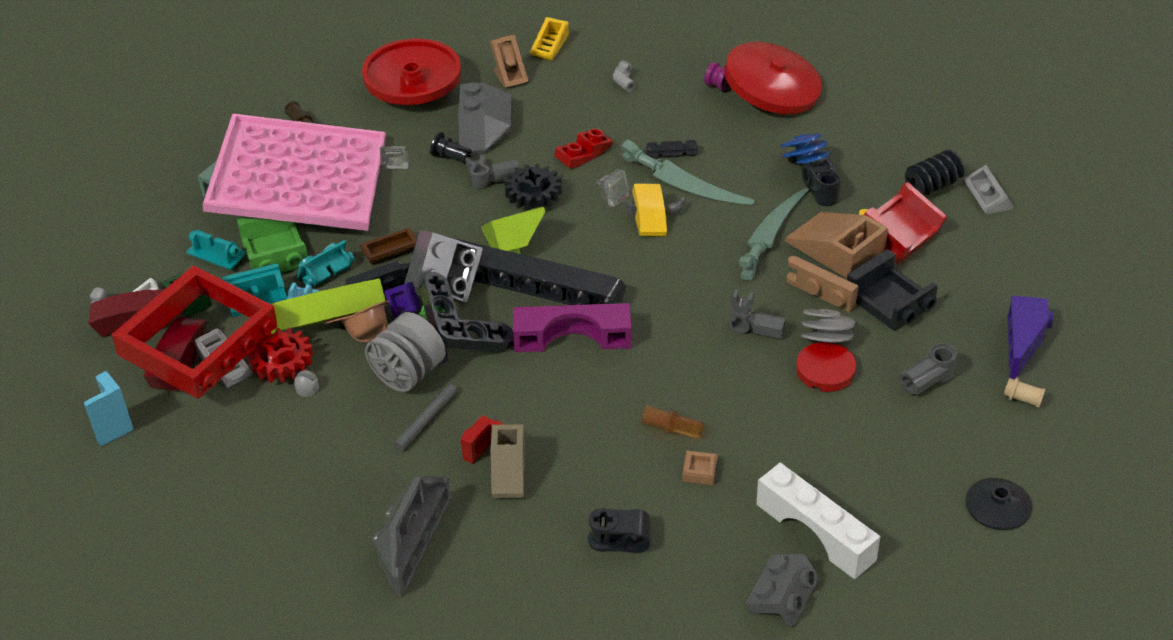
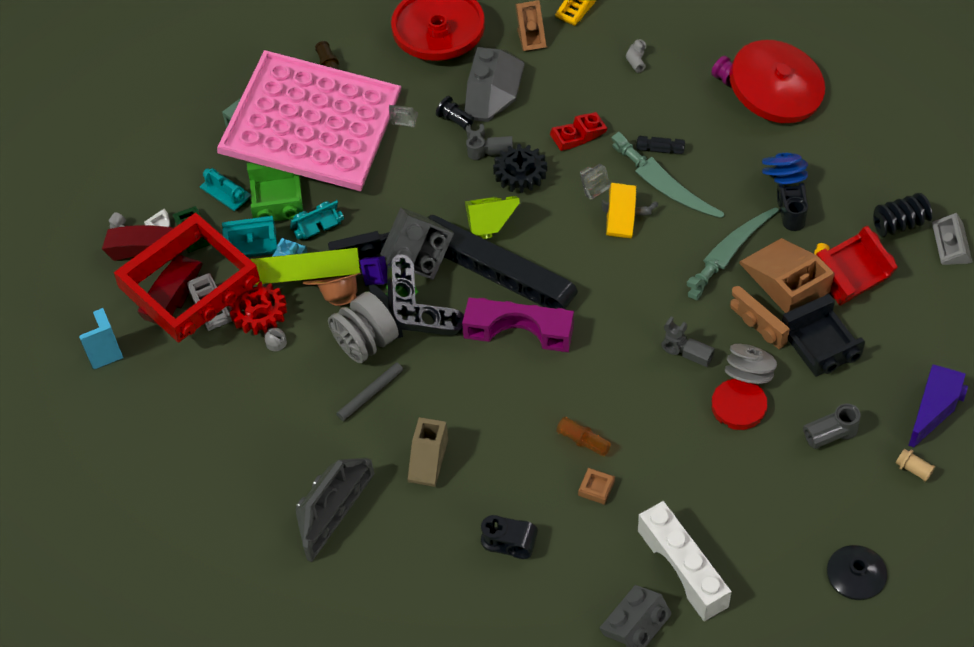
camera: 15 degrees right, 10 degrees up
(389, 246) = (377, 209): reddish brown tile -> none
(477, 438) = (405, 423): red bracket -> none

